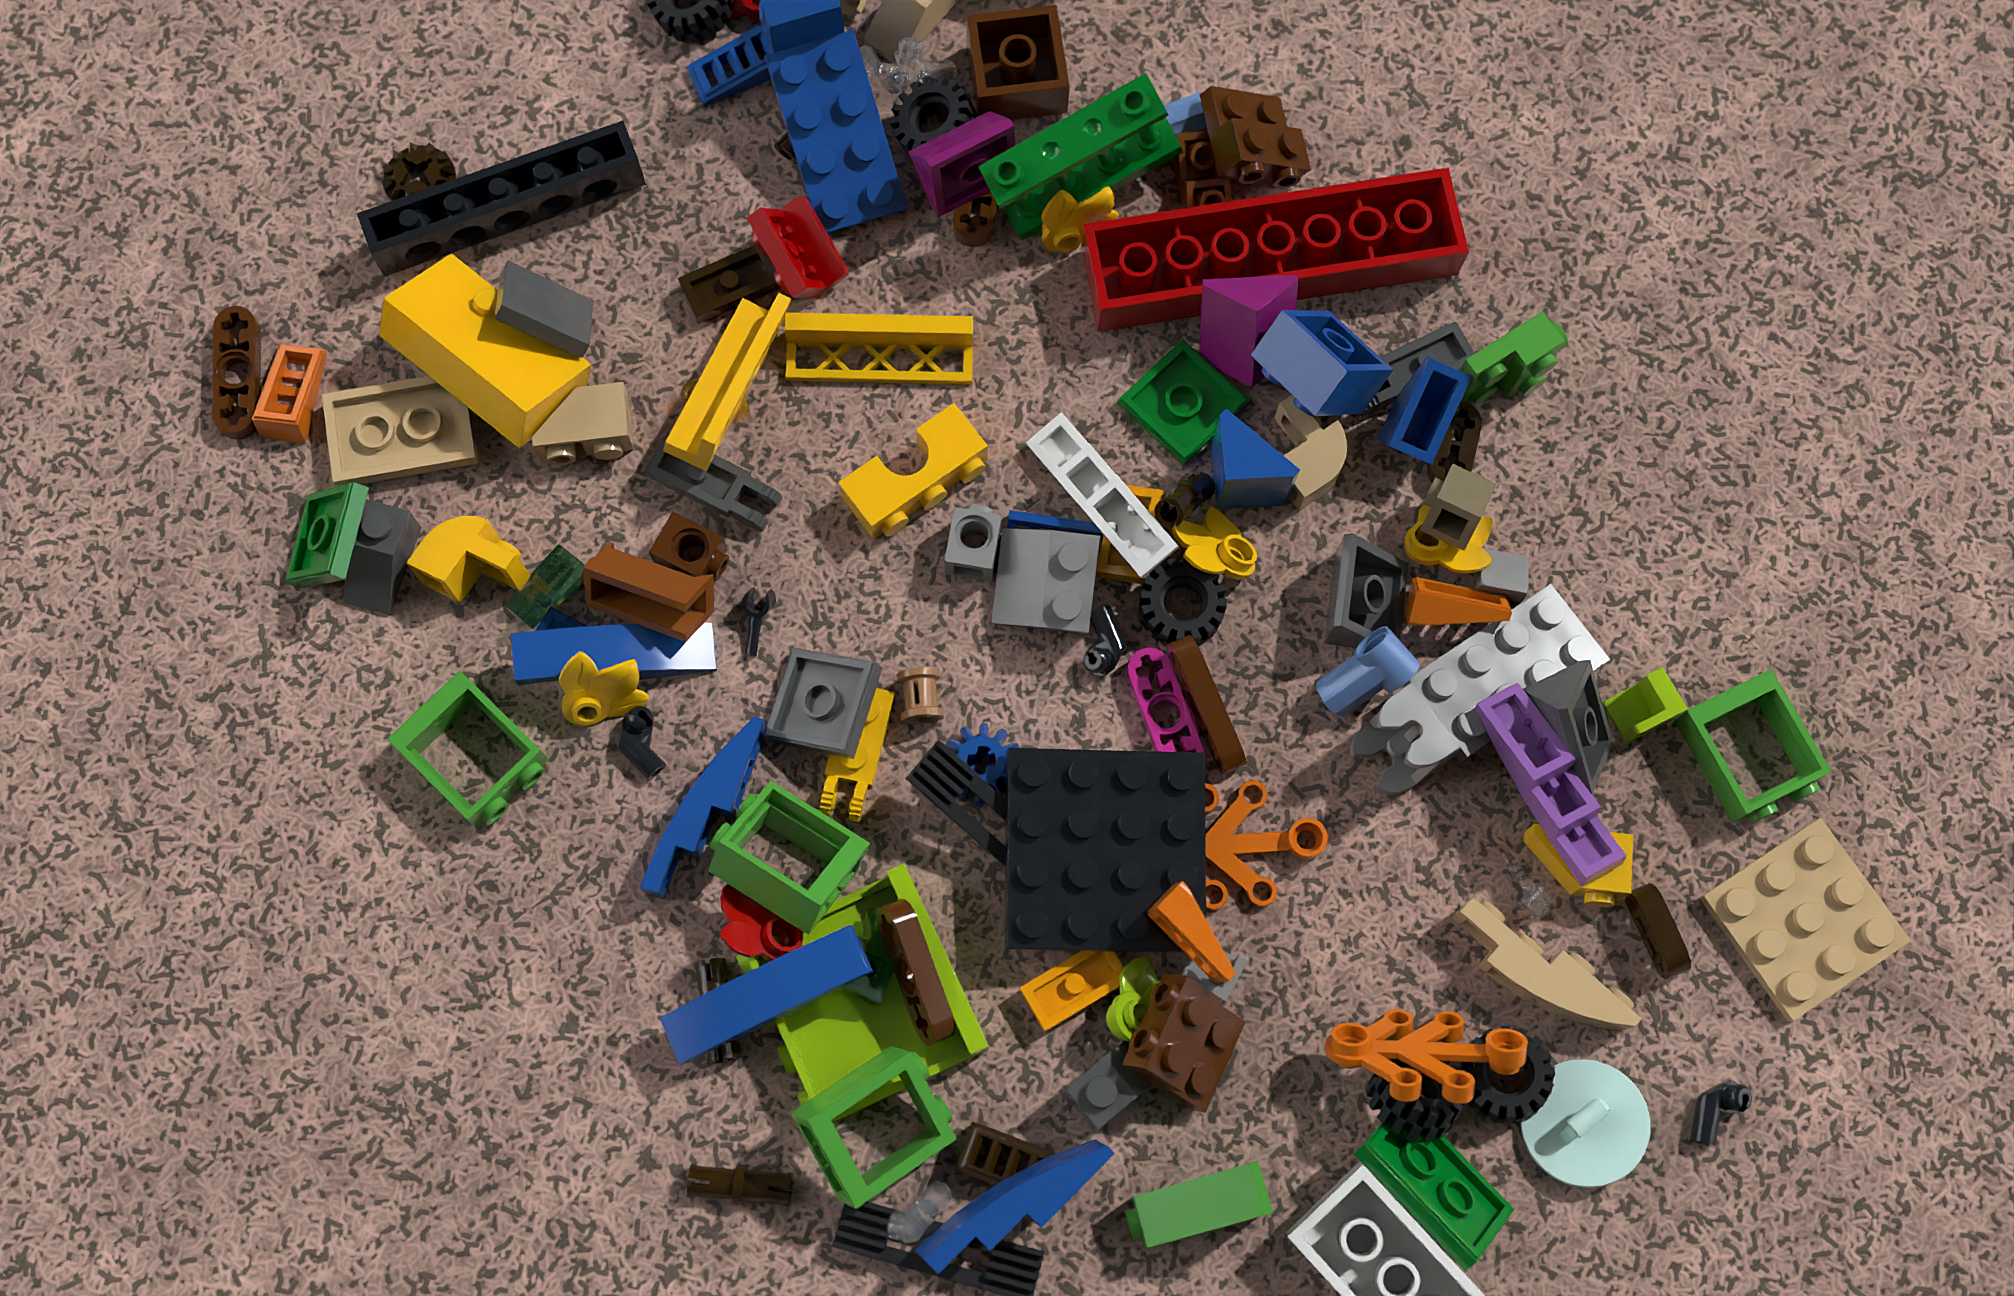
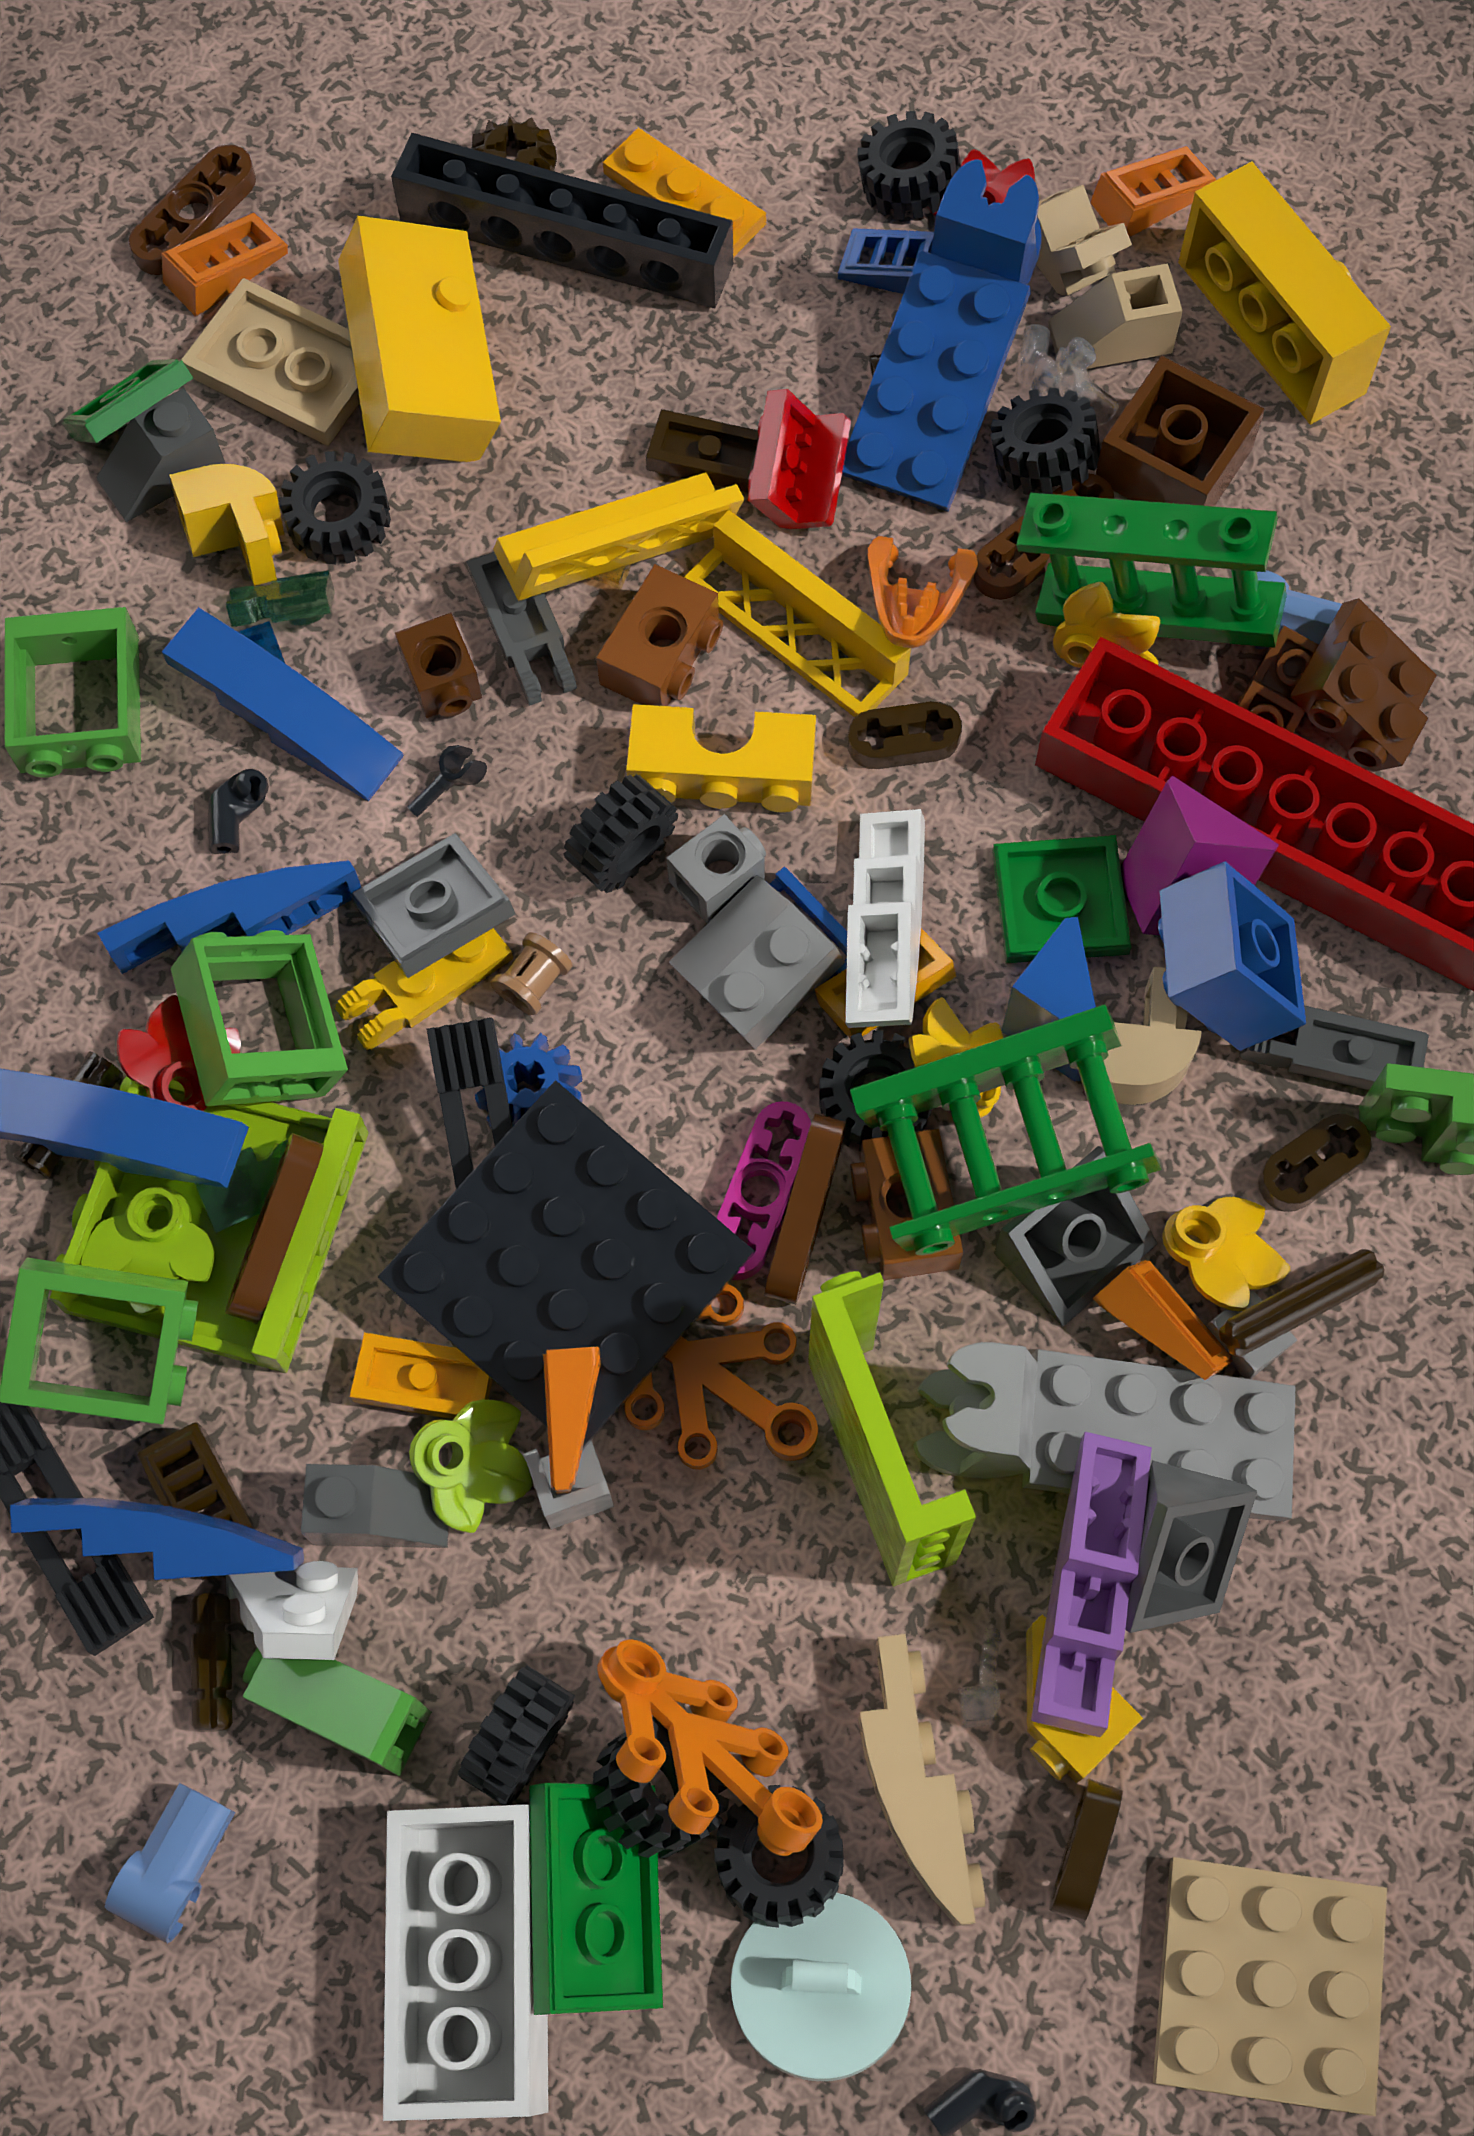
camera: 45 degrees right, 5 degrees down
(514, 476) = (332, 479): none -> black tyre
(544, 309) = (502, 339): dark grey tile -> none
(549, 118) = (660, 173): none -> light orange plate
(587, 423) = (455, 479): tan slope -> none
(598, 694) = (231, 729): yellow plate -> none
(648, 593) = (361, 672): dark orange window -> none
(802, 402) = (661, 609): none -> dark orange brick
(838, 1055) = (131, 1246): none -> lime plate
(902, 567) = (620, 833): none -> black tyre
(920, 1215) = (67, 1468): clear arm -> none
(951, 161) = (1009, 476): magenta slope -> none
(954, 293) = (915, 615): none -> orange animal
(999, 366) = (904, 735): none -> dark brown beam
(1101, 1247) = (211, 1662): none -> dark brown axle
(1109, 644) = (766, 1077): black arm -> none
(1135, 1176) = (296, 1610): none -> white wing
(1184, 499) = (945, 982): dark brown pin -> none
(1184, 1041) = (471, 1523): reddish brown plate -> none
(1251, 628) = (878, 1181): none -> dark orange brick
(1274, 524) = (1020, 1066): none -> green fence
(1316, 1134) = (516, 1735): none -> black tyre
(1376, 665) = (1014, 1309): medium blue piece -> none
(1376, 804) = (908, 1535): none -> lime panel
(1424, 410) = (1305, 1091): blue slope -> none
(1456, 506) = (1254, 1217): dark tan brick -> none
(1518, 533) = (1301, 1302): none -> dark brown axle
(1645, 706) = (1286, 1600): lime panel -> none
(1786, 726) = (1394, 1675): bright green window -> none

